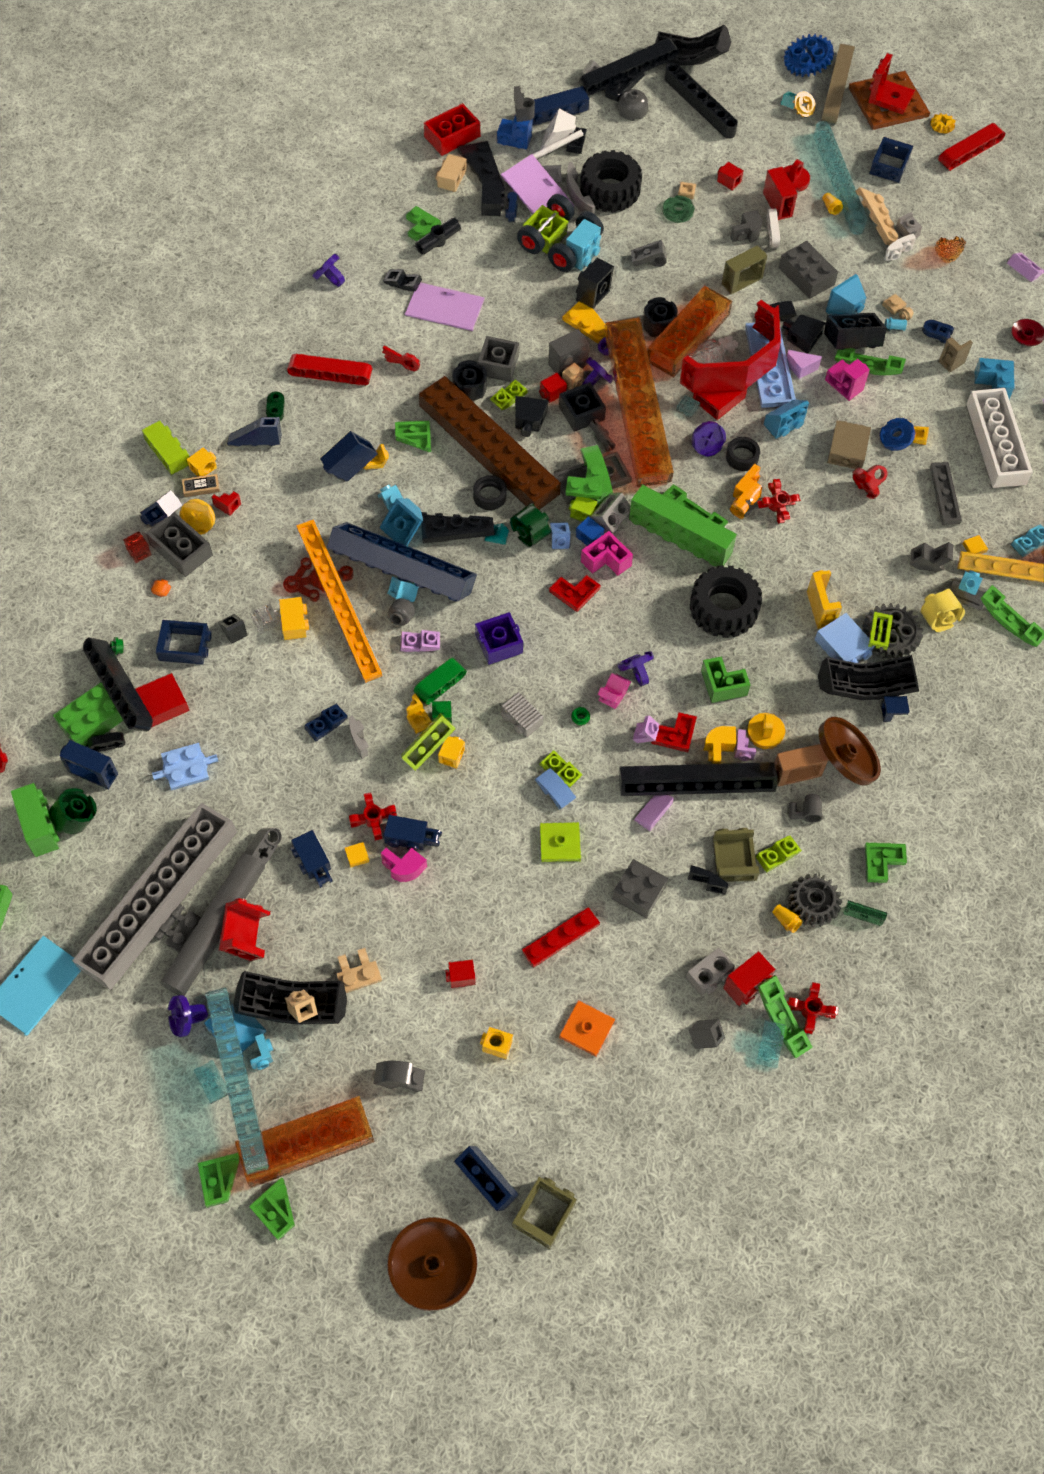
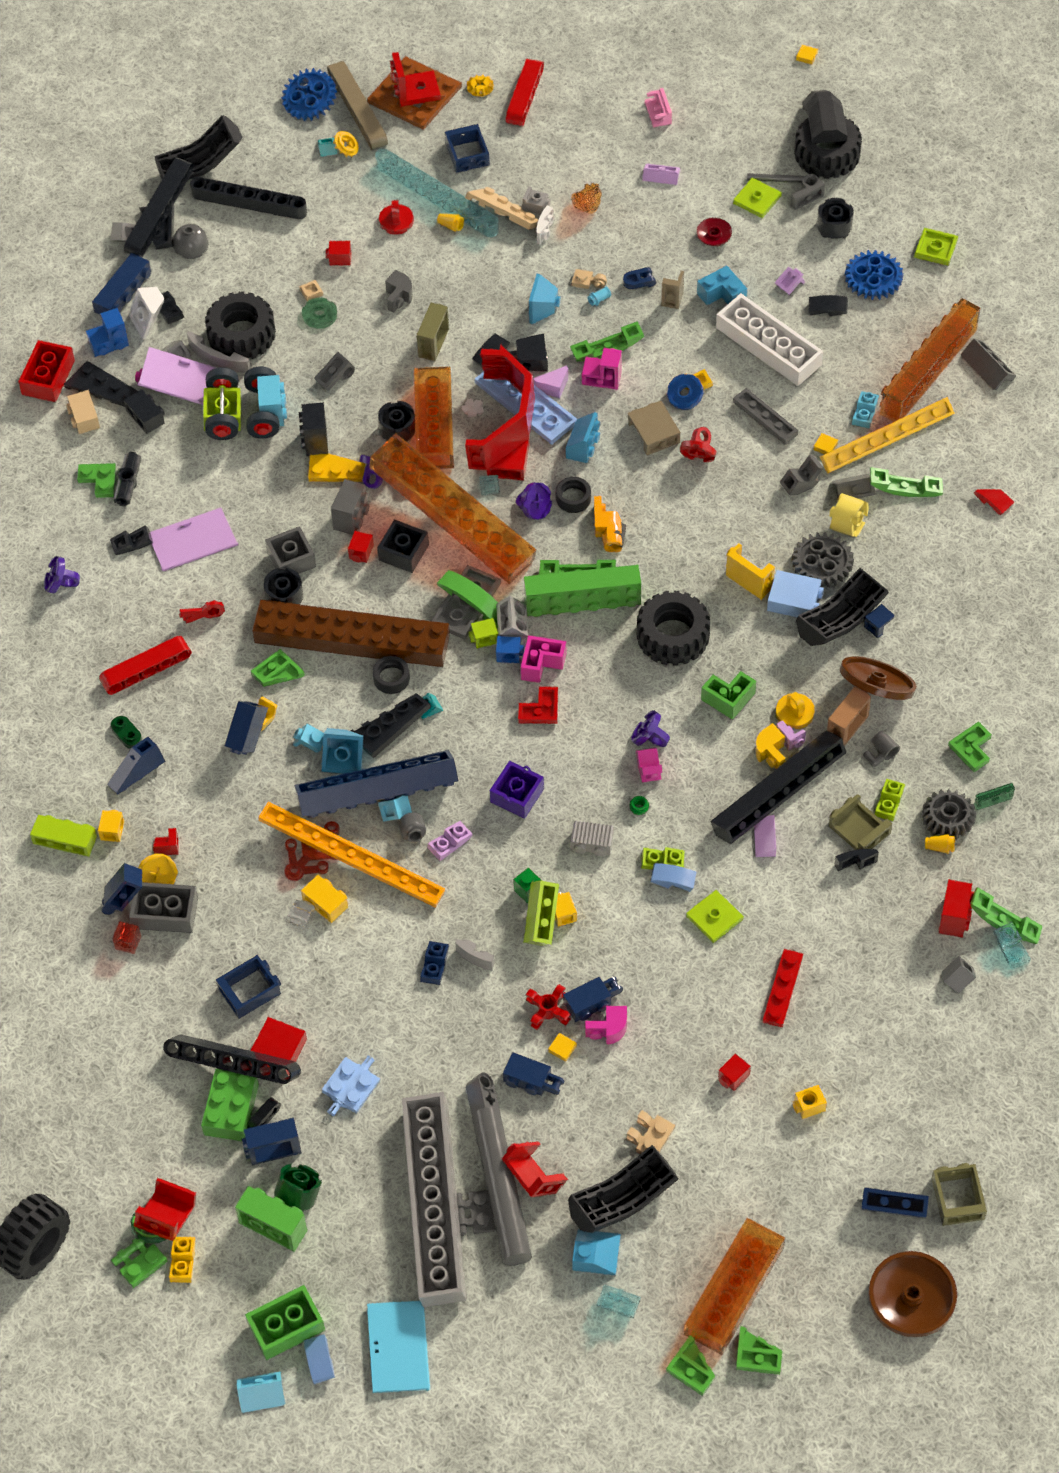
camera: 35 degrees left, 5 degrees down
(117, 646) = (192, 1030): green plate -> none
(160, 588) = (178, 958): orange piece -> none
(184, 1015) = (547, 1271): dark purple tile -> none
(200, 485) = (126, 846): tile -> none
(233, 628) = (279, 943): black slope -> none
(237, 1081) = (644, 1277): clear light blue beam -> none
(265, 1047) = (636, 1247): medium azure bracket -> none
(298, 1000) = (639, 1187): tan brick -> none
(399, 1074) = (757, 1183): dark grey brick -> none
(417, 716) = (505, 902): yellow slope -> none
(440, 681) = (498, 860): green beam -> none
(506, 397) = (326, 579): lime slope -> none
(511, 212) = (168, 405): dark blue plate -> none
(523, 106) = (108, 308): dark grey plate -> none
(529, 414) = (361, 584): black torso -> none
(530, 525) = (455, 677): dark green brick -> none
(558, 144) = (155, 326): white bar -> none
(560, 535) = (485, 668): medium blue bracket -> none
(573, 376) = (372, 525): tan brick -> none
(587, 1028) = (866, 1040): orange plate -> none
(590, 486) = (477, 607): bright green plate -> none
(597, 373) = (389, 505): dark purple tile -> none
(602, 435) = (440, 559): dark grey pin -> none
(639, 888) = (811, 904): dark grey brick -> none
(646, 730) = (704, 778): lavender bracket -> none
(678, 737) = (732, 764): red plate -> none
(707, 969) = (921, 927): light grey brick -> none
(709, 352) = (474, 426): clear brick -> none
(773, 228) = (419, 276): white beam -> none
(778, 501) = (640, 514): red pin -> none
(780, 192) = (401, 241): red brick -> none
(808, 269) = (484, 295): dark grey brick -> none
(823, 1010) = (1021, 890): red pin -> none
(855, 330) = (575, 324): black brick -> none
(878, 643) = (823, 577): lime tile -> none
(970, 582) = (851, 476): medium azure bracket -> none

